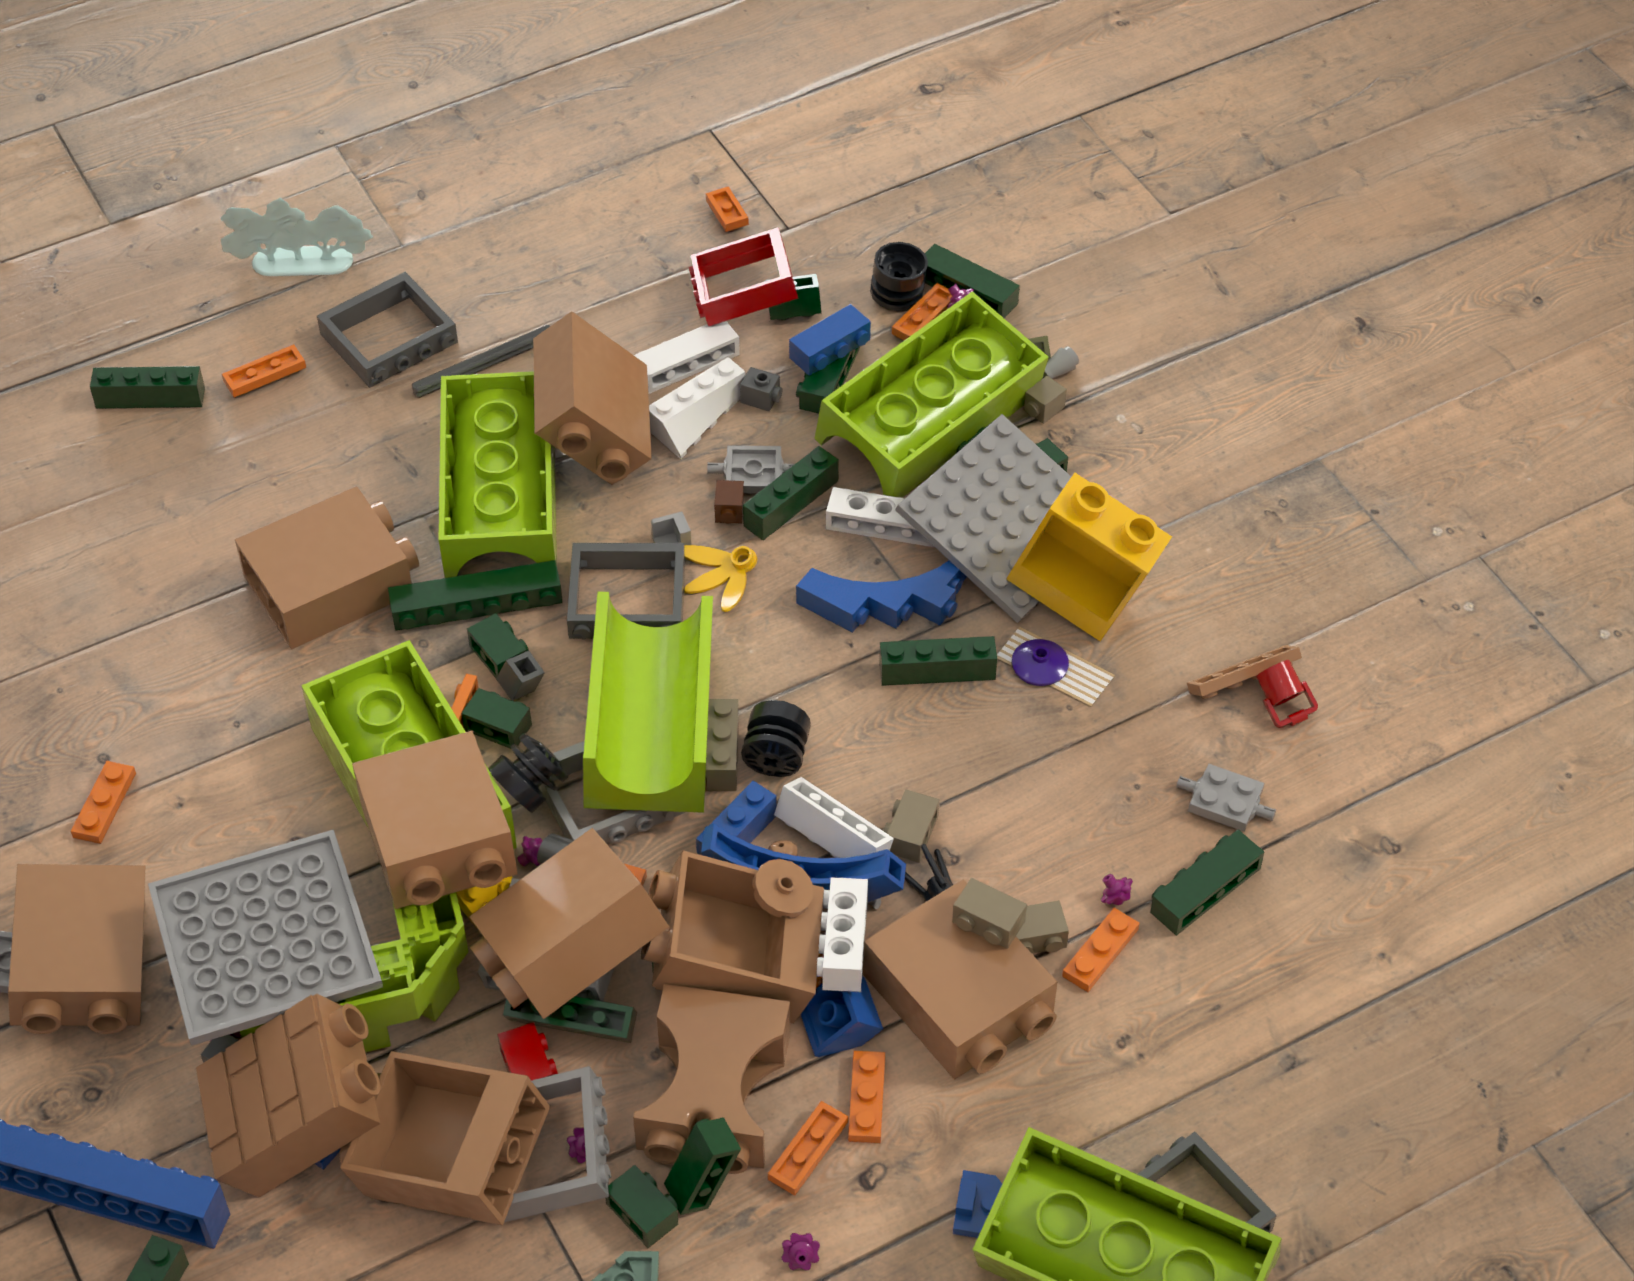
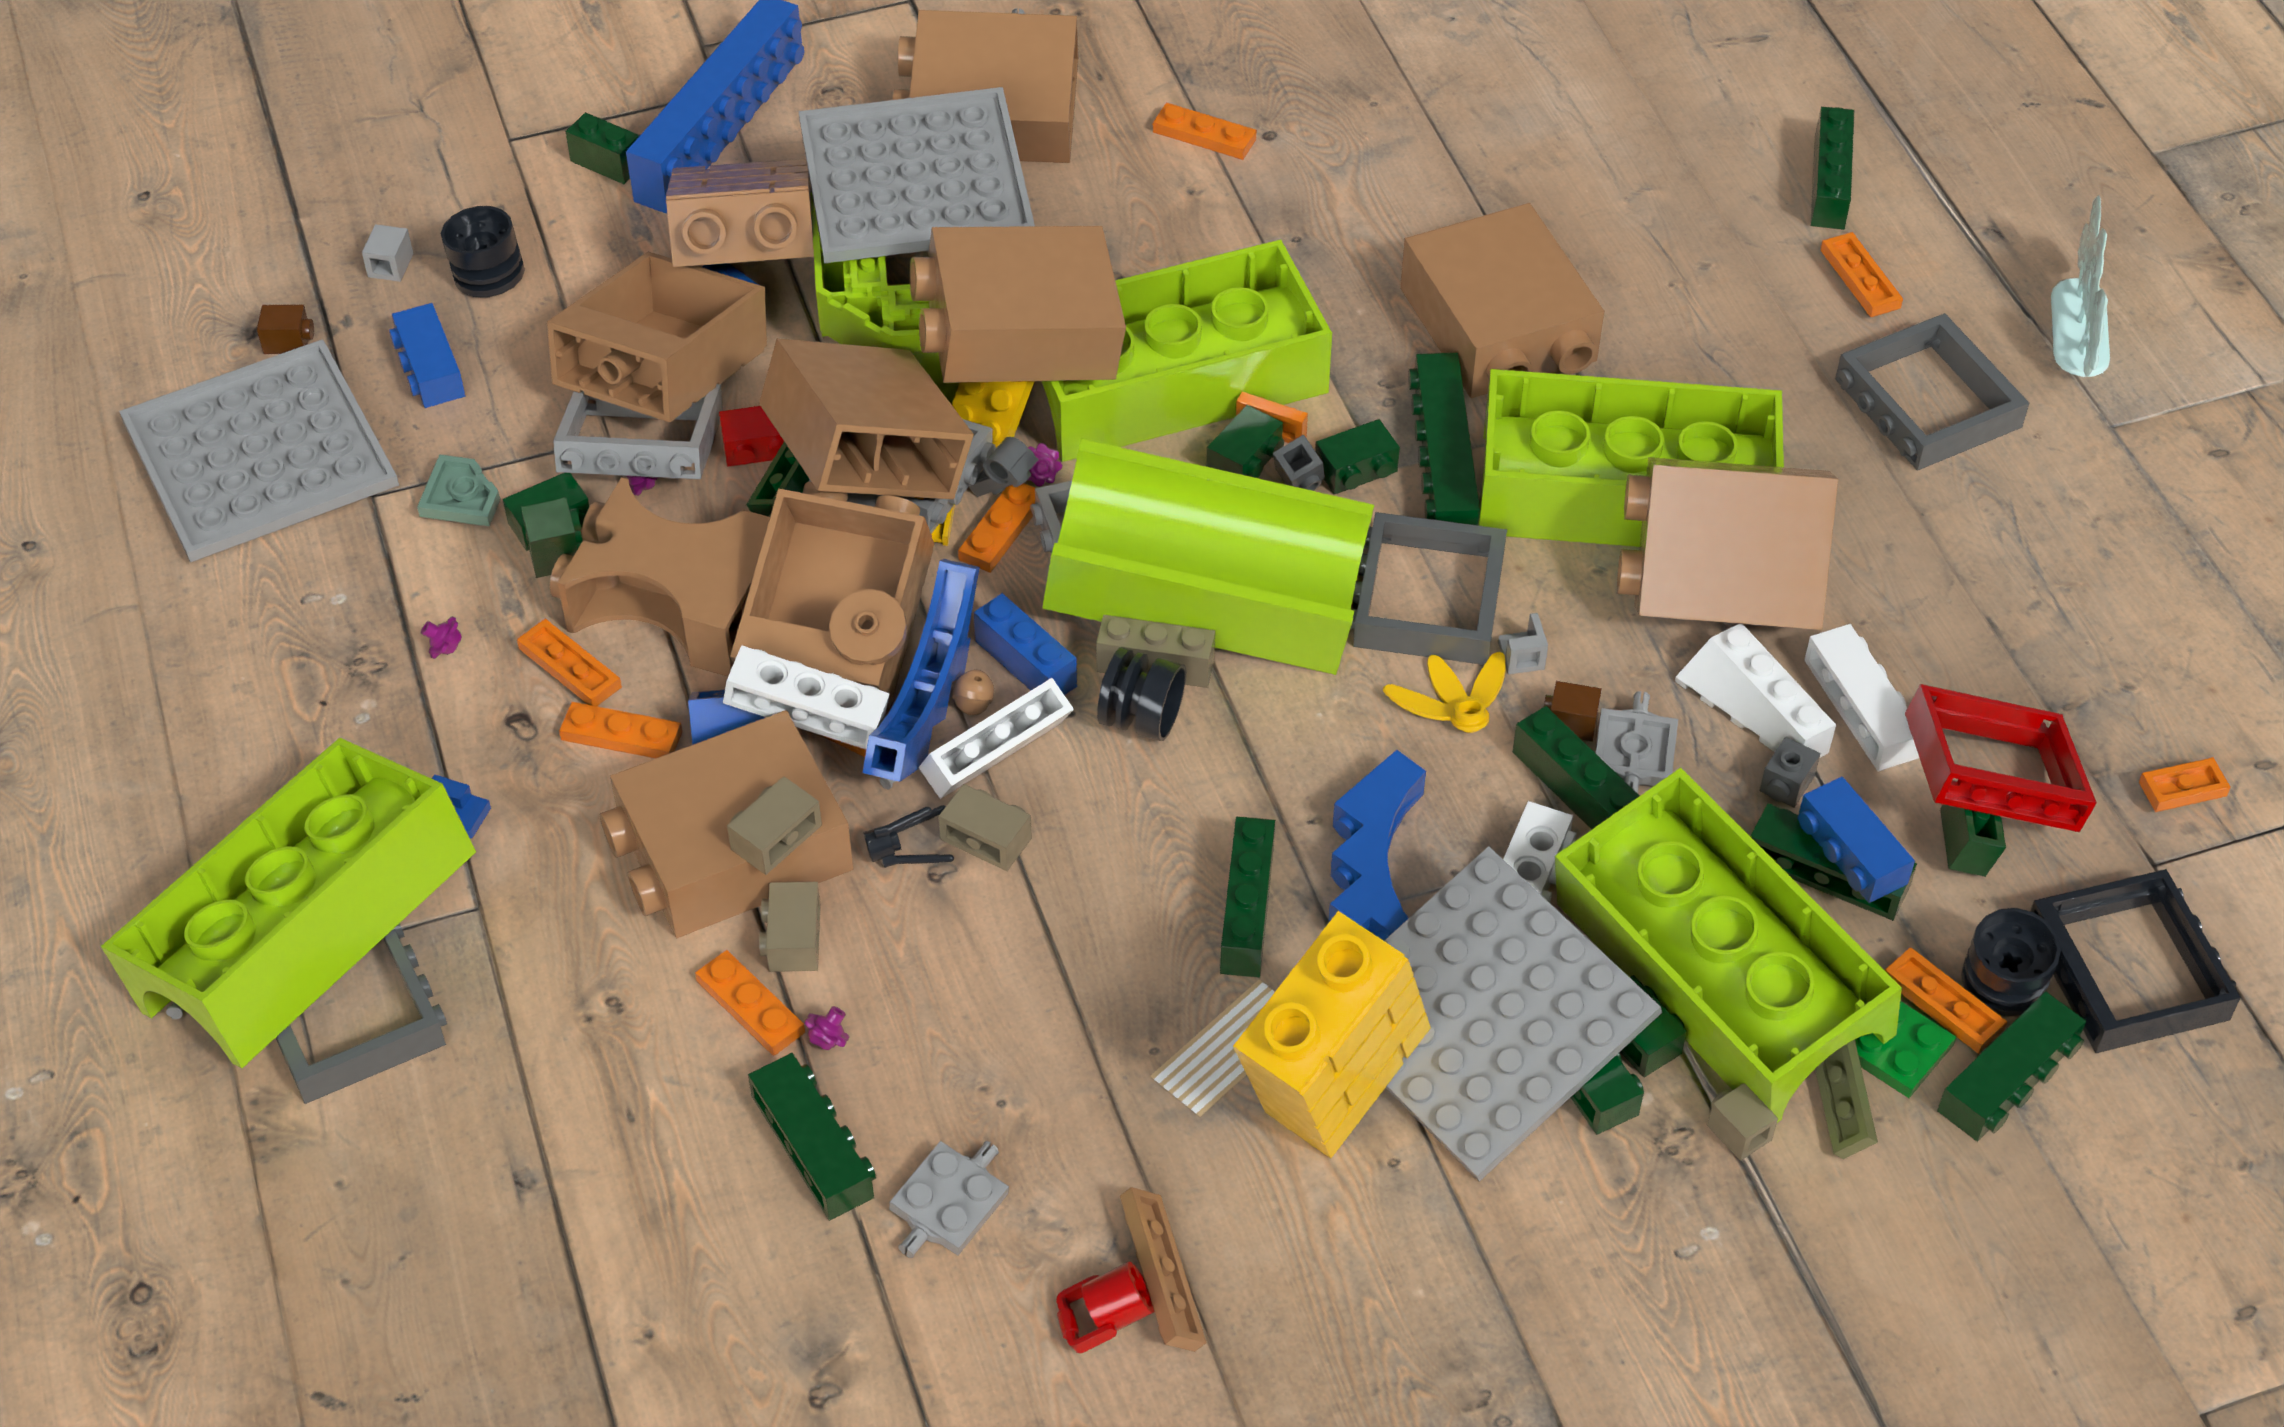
camera: 100 degrees right, 0 degrees up
(478, 362) = (1873, 489): dark grey axle -> none
(528, 772) = (1120, 421): black wheel -> none
(860, 204) = (2184, 930): none -> black window
(957, 294) = (1961, 1038): magenta plant -> none
(1040, 662) = (1215, 1025): dark purple dish -> none
(1061, 362) = (1824, 1161): light grey cone -> none

